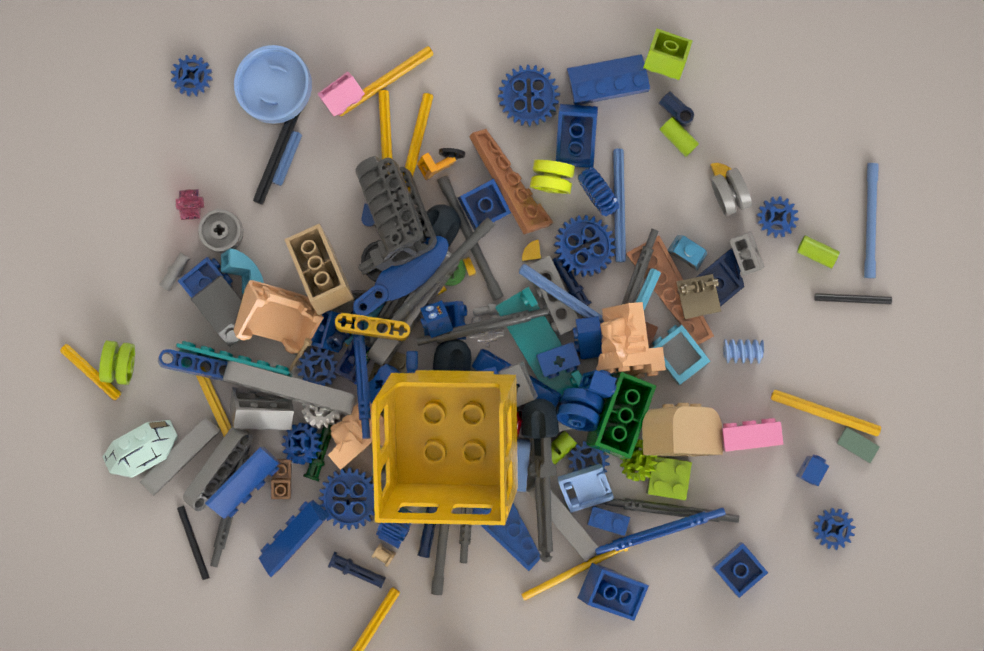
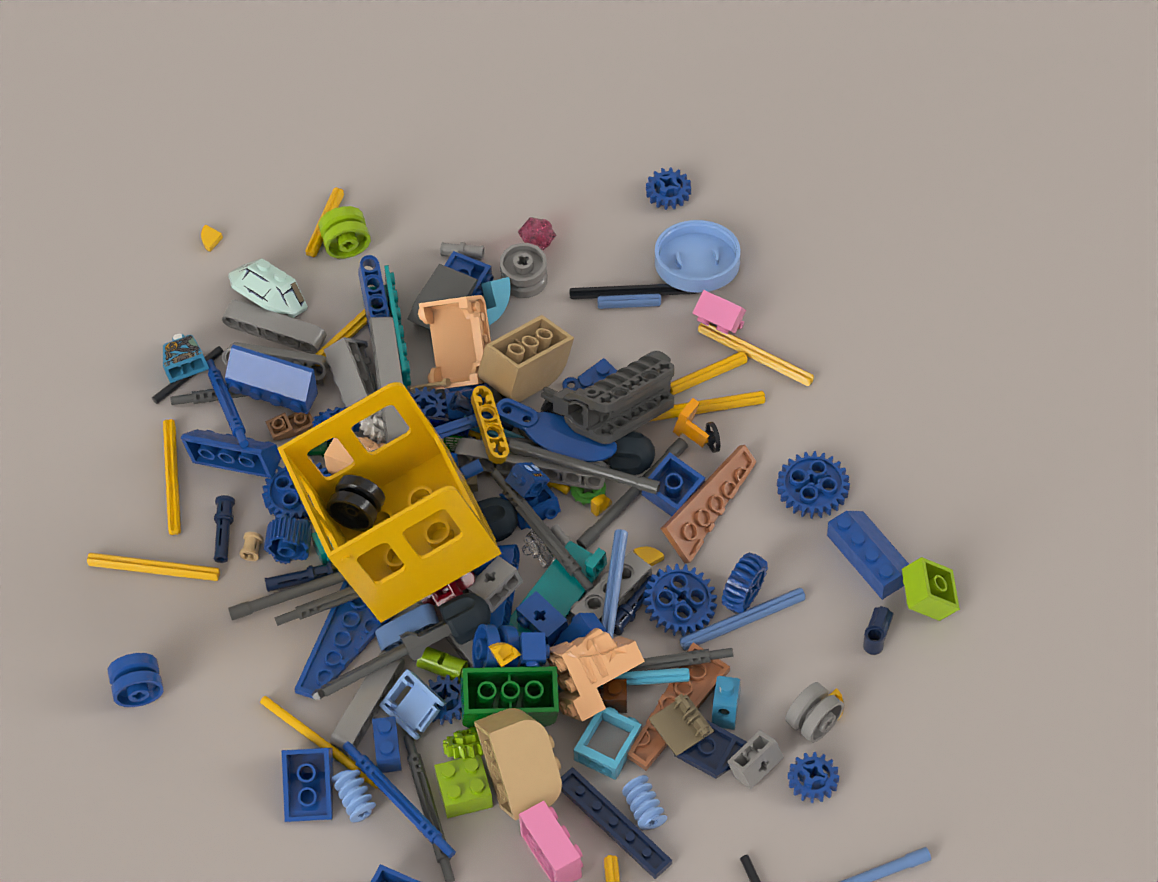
camera: 65 degrees right, 30 degrees down
(61, 473) = (210, 237): none -> yellow tile
(179, 542) = (183, 358): none -> torso
(249, 526) = (227, 404): none -> blue axle
(287, 592) = (171, 475): none -> yellow axle
(349, 222) = (591, 376): none -> blue hinge
(414, 466) = (356, 503): none -> black wheel
(551, 175) = (737, 533): neon yellow wheel -> none
(576, 135) = (796, 544): blue slope -> none
(596, 407) = (504, 653): none -> yellow tile
(639, 561) = (353, 795): none -> light blue piece
(679, 136) = (848, 643): lime pin -> none
(747, 379) = (614, 823): none -> dark blue plate
(818, 251) = (796, 835): lime pin -> none

